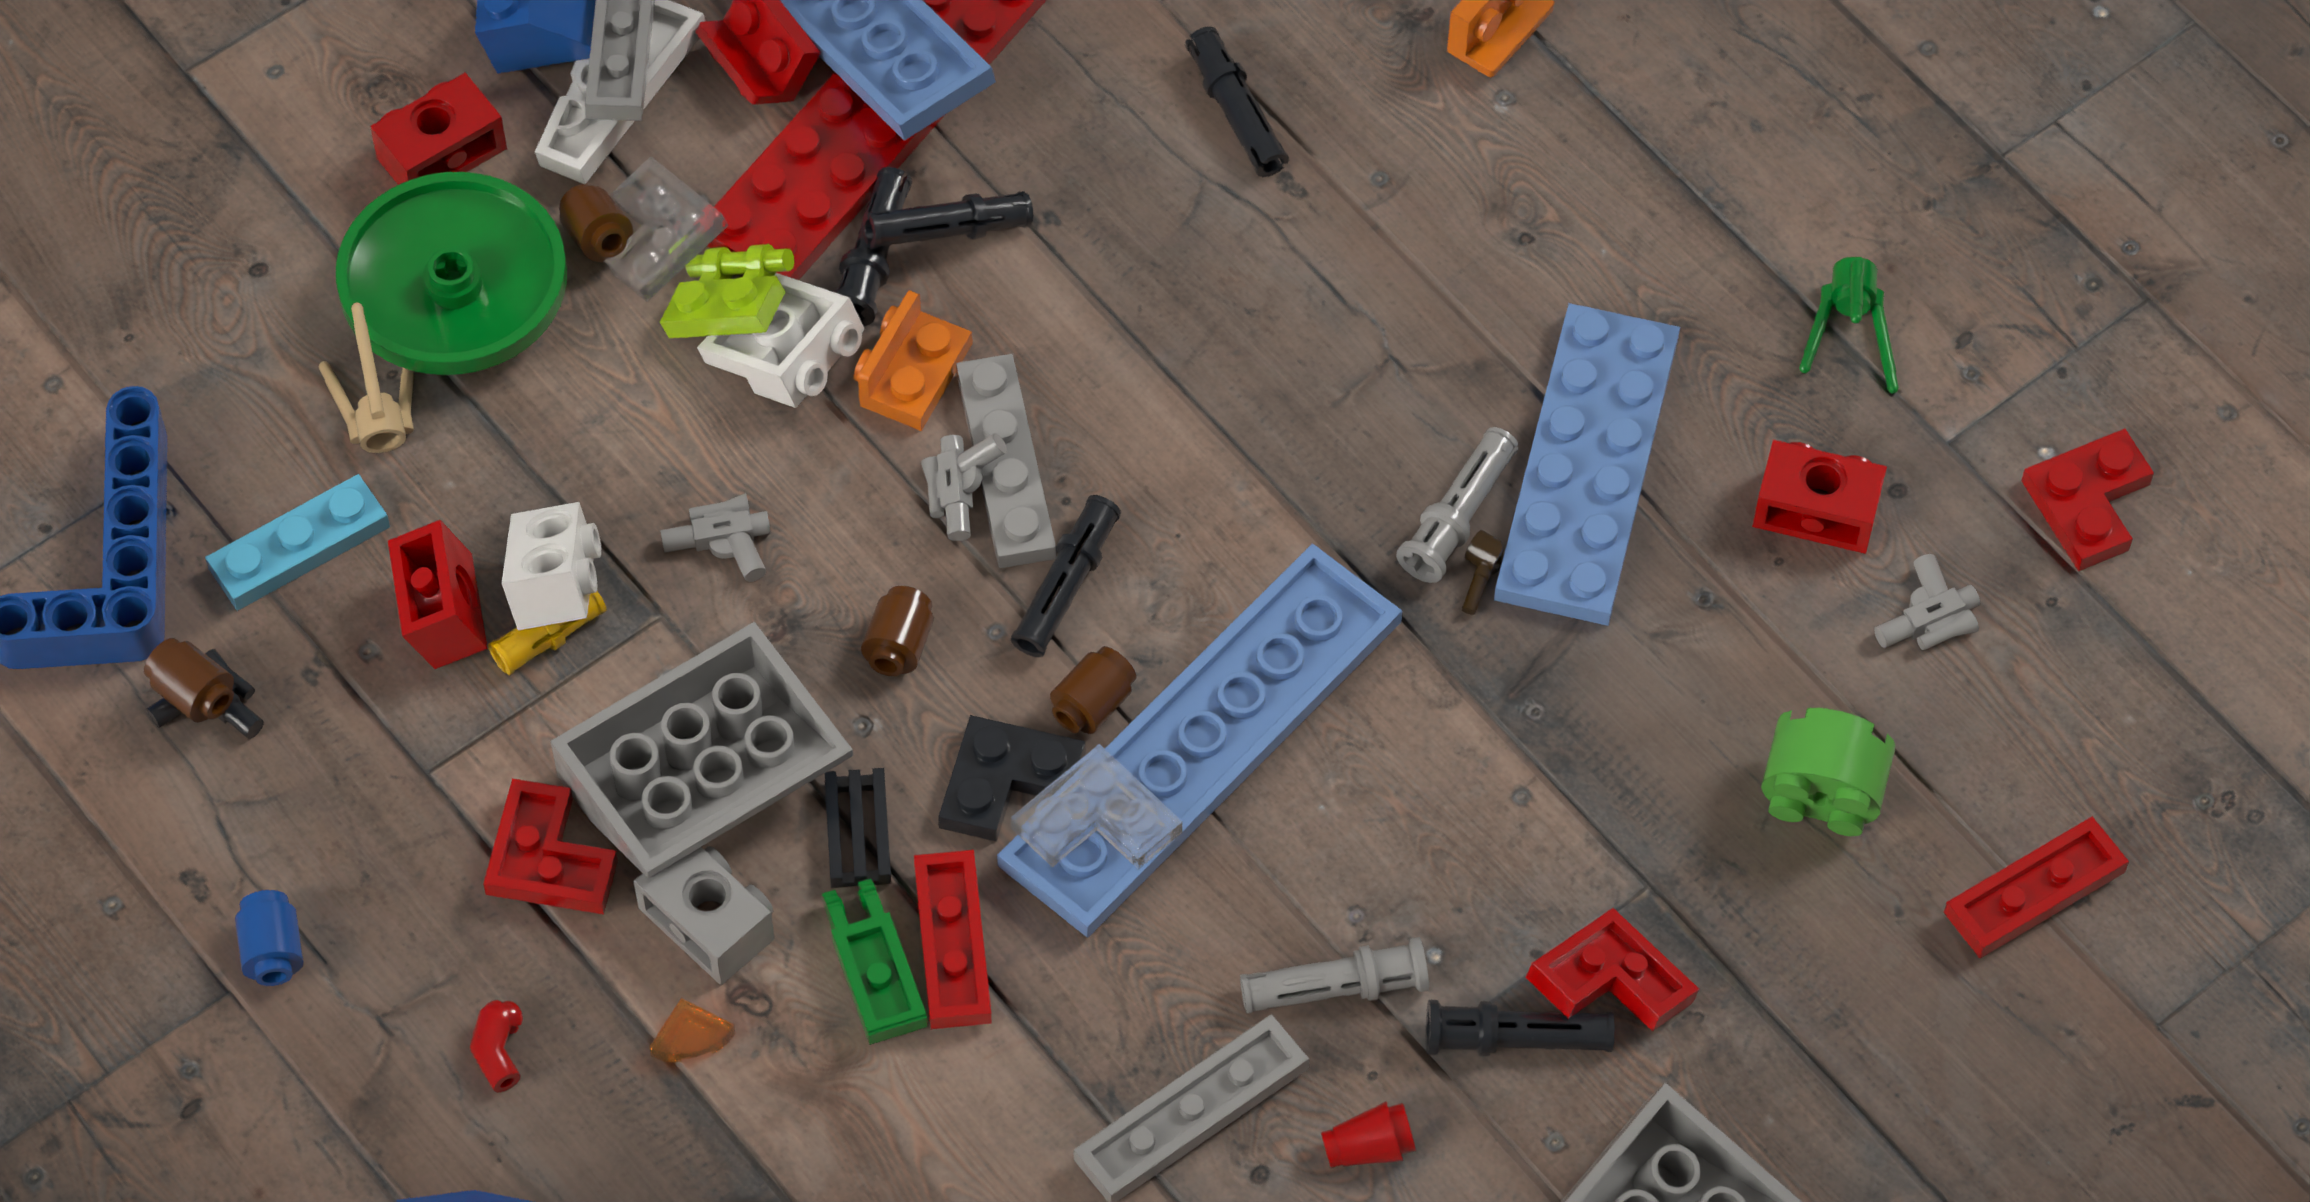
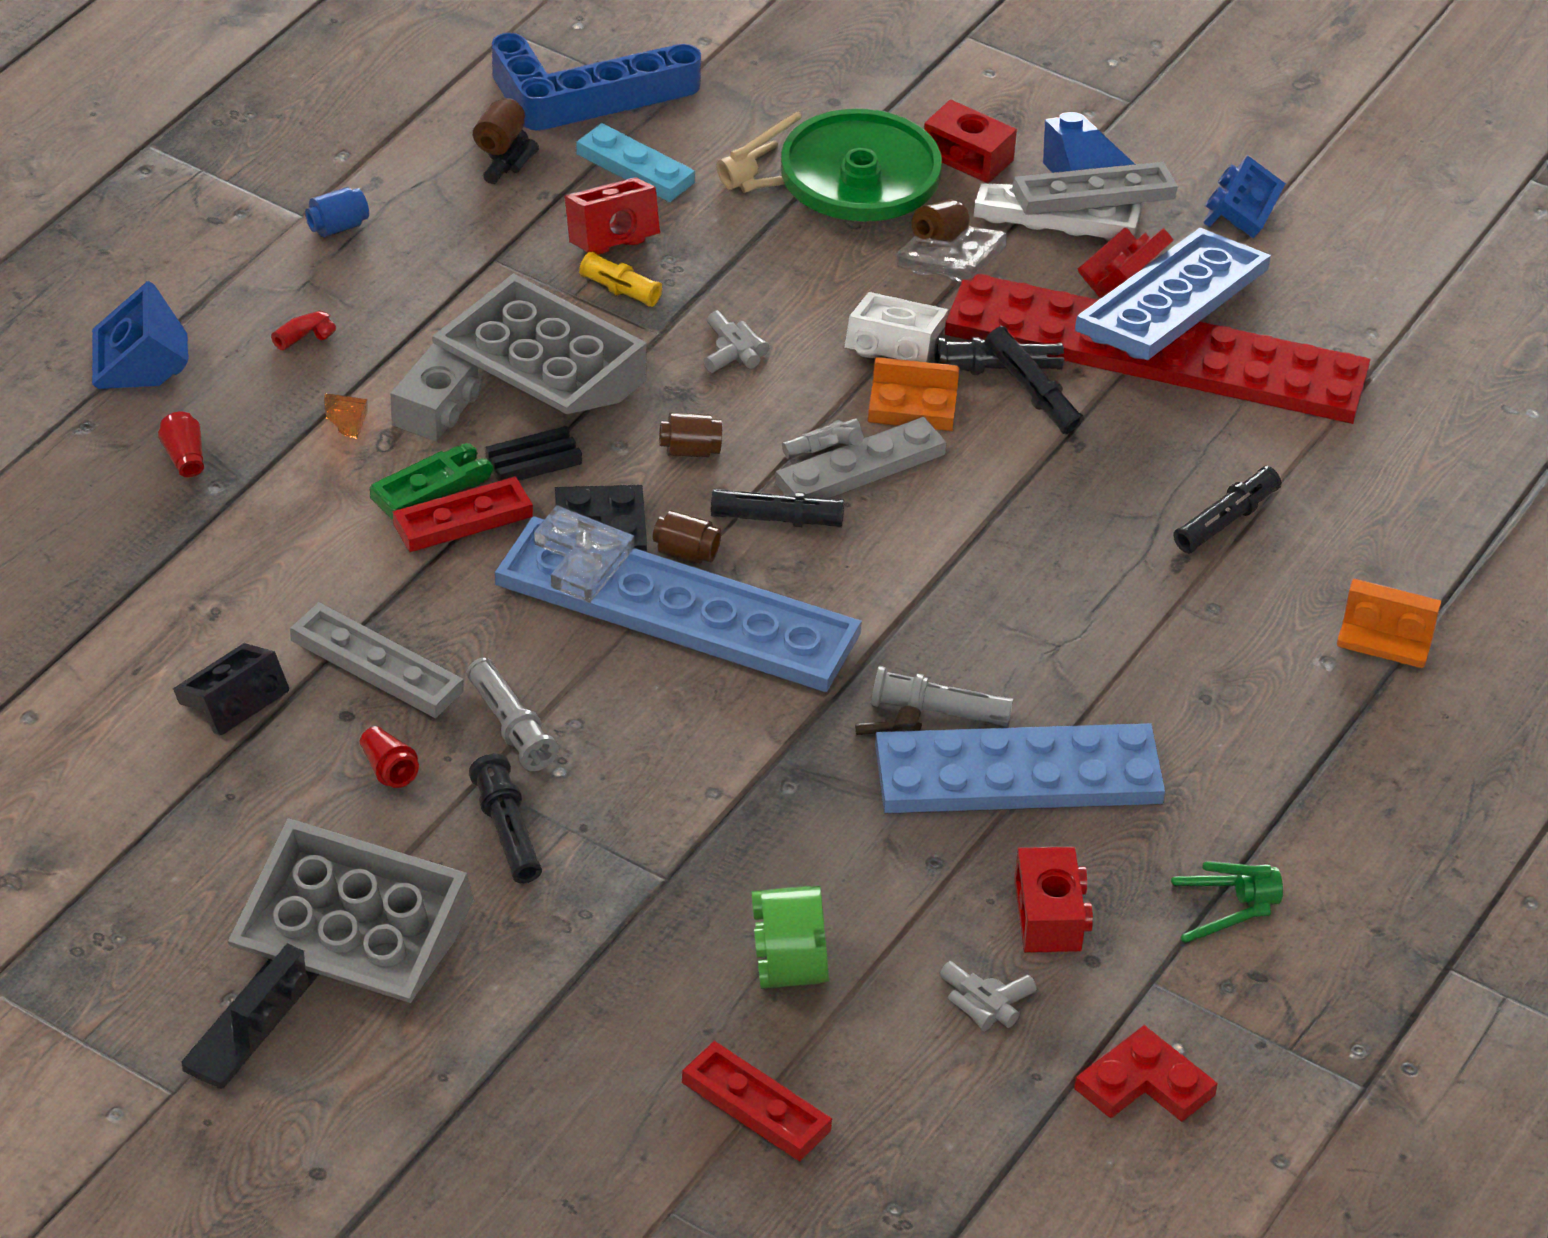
camera: 70 degrees right, 15 degrees down
(533, 861) = (439, 306): red plate -> none
(550, 565) = (654, 253): white brick -> none
(725, 304) = (907, 291): lime plate -> none
(1613, 959) = (582, 854): red plate -> none

